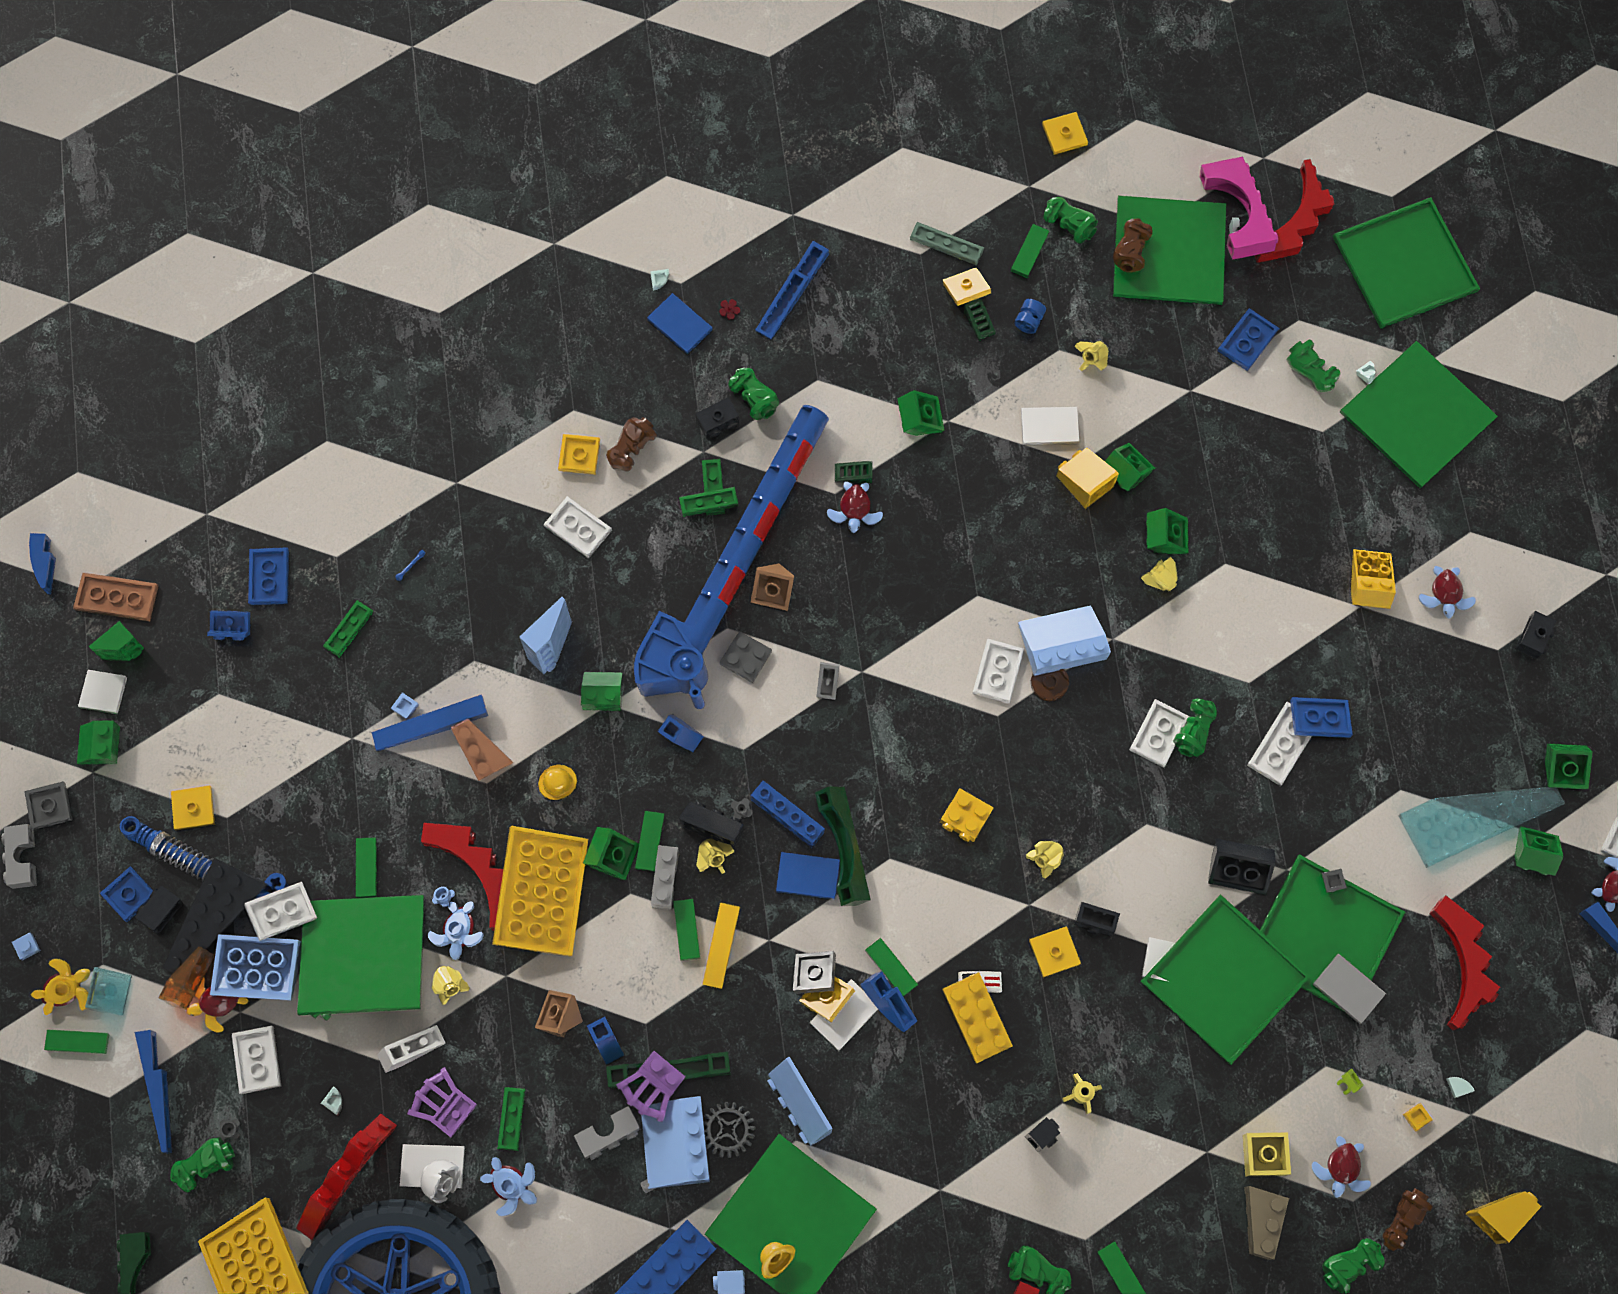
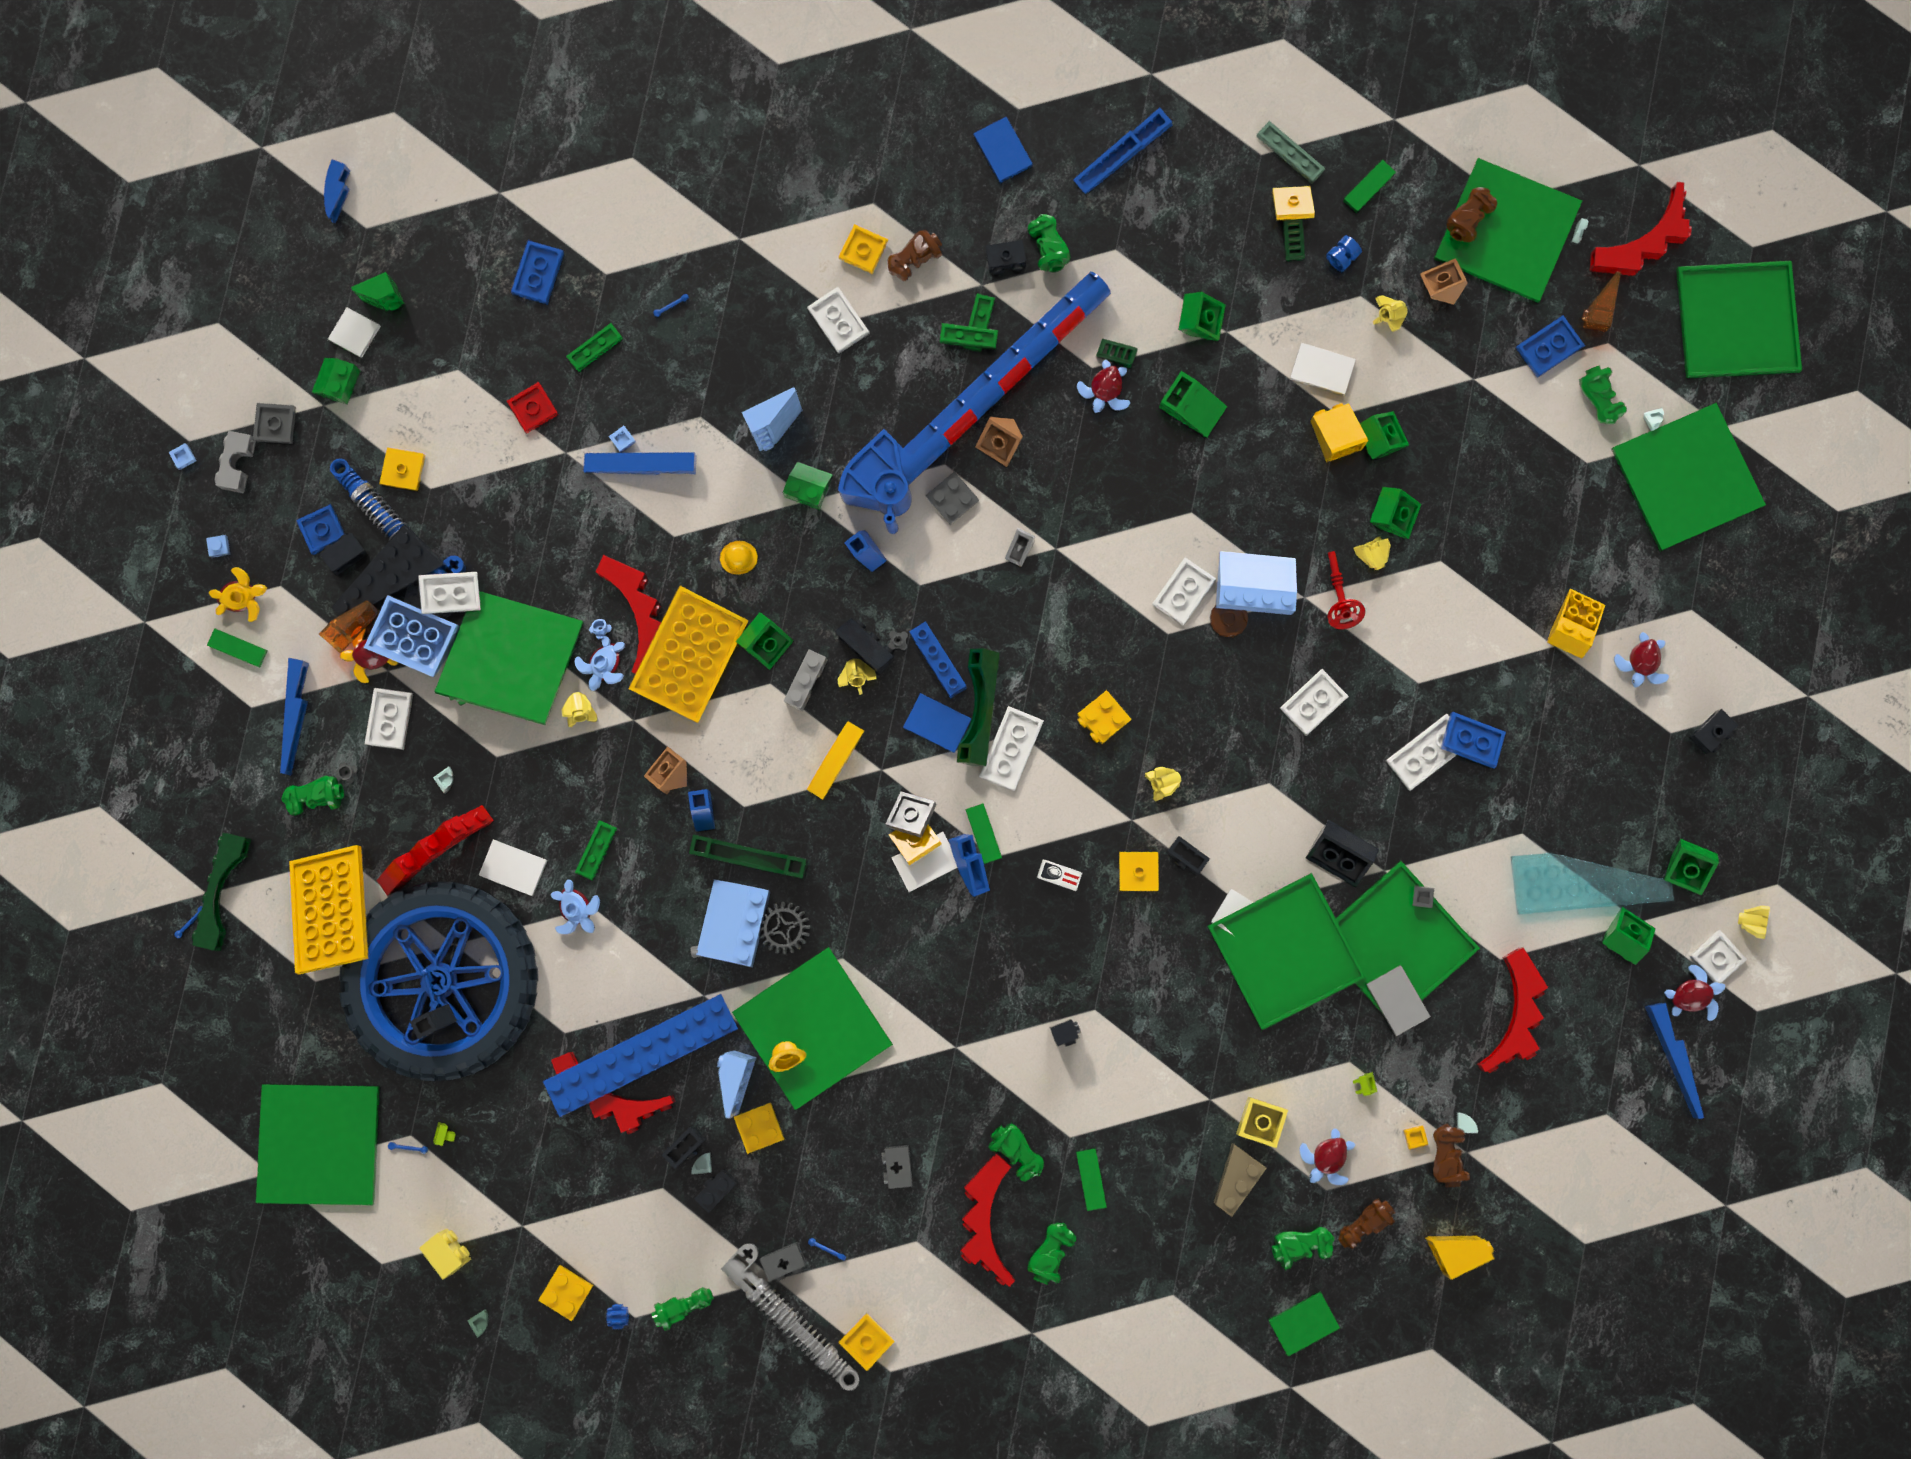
camera: 30 degrees right, 10 degrees up
(108, 991) = (277, 612): clear light blue slope -> none
(116, 597) = (393, 245): nougat tile -> none
(229, 624) = (487, 307): blue bracket -> none
(305, 705) = (532, 407): none -> red tile
(366, 867) = (540, 578): green tile -> none
(410, 1048) = (527, 756): white slope -> none
(439, 1180) = (514, 882): white cylinder -> none
(453, 1111) = (547, 825): medium lavender plate -> none
(479, 750) = (675, 505): nougat wedge -> none
(624, 1127) = (693, 892): light grey arch -> none
(649, 841) = (804, 641): green tile -> none
(659, 278) = (999, 97): light aqua tile -> none
(661, 1076) = (738, 858): medium lavender plate -> none
(686, 929) = (809, 734): green tile -> none
(729, 309) = (1055, 150): dark red plant -> none
(800, 1102) = (856, 927): light blue slope -> none
(888, 876) = (1011, 748): none -> white tile
(942, 495) = (1193, 404): none -> green slope
(977, 1017) = (1044, 906): yellow plate -> none
(1065, 133) = (1449, 75): yellow plate -> none
(1075, 220) = (1424, 169): green animal -> none
(1078, 1096) = (1109, 1008): light yellow brick -> none
(1132, 311) = (1445, 281): none -> medium nougat slope
(1151, 634) = (1342, 604): none -> red dish
(1194, 735) = (1346, 715): green animal -> none
(1235, 178) = (1600, 178): dark pink arch -> none
(1281, 294) = (1600, 312): none -> clear orange slope
(1458, 1129) = (1448, 1162): none -> reddish brown animal

